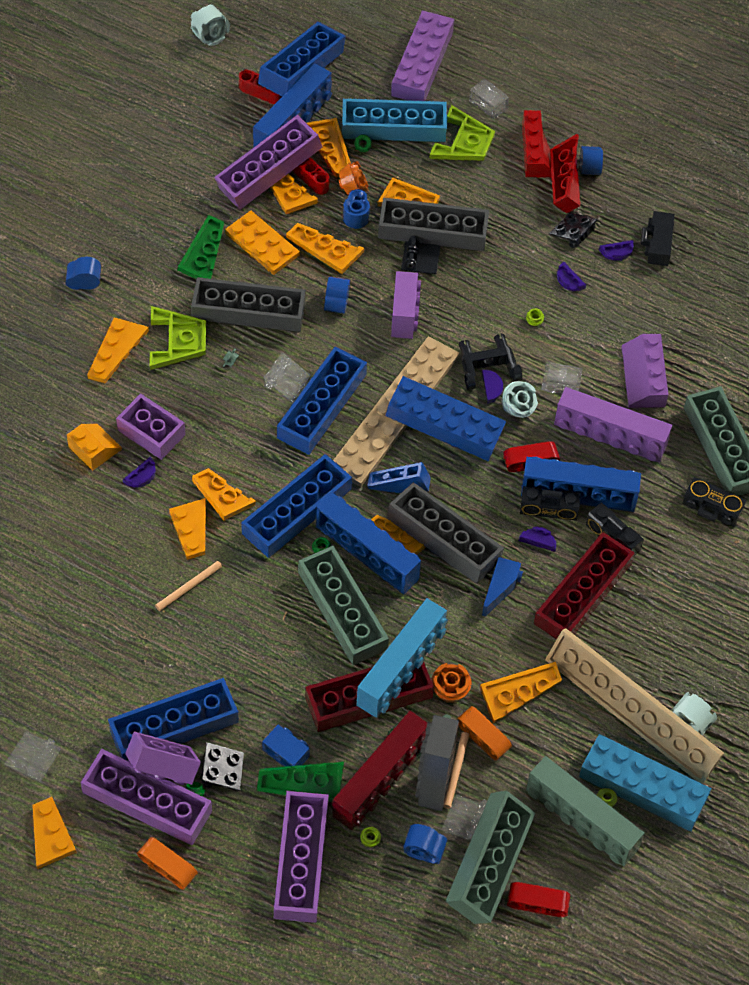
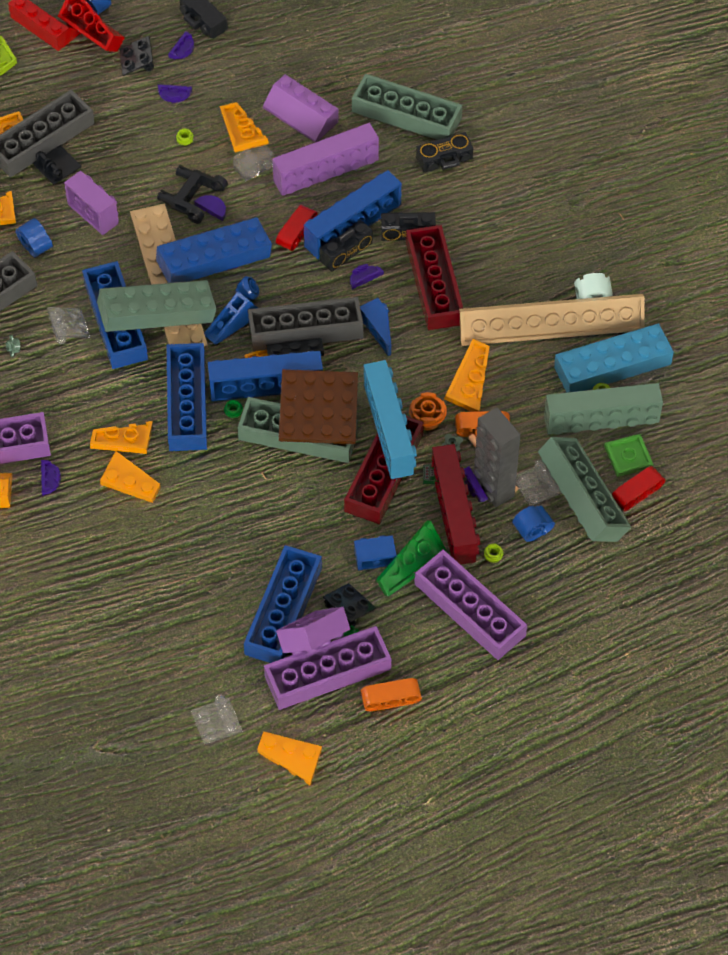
camera: 45 degrees left, 0 degrees up
(188, 586) = (177, 517): light nougat bar -> none
(350, 418) = (156, 305): none -> sand green brick
(368, 600) = (318, 406): none -> reddish brown plate
(413, 543) = (296, 347): none -> black plate
(413, 780) = (473, 485): none -> dark purple tile
(439, 469) = (248, 288): none -> blue cone
(519, 399) = (245, 197): light aqua cone -> none
(566, 867) = (628, 455): none -> bright green tile
(579, 346) = (241, 129): none -> light orange wing

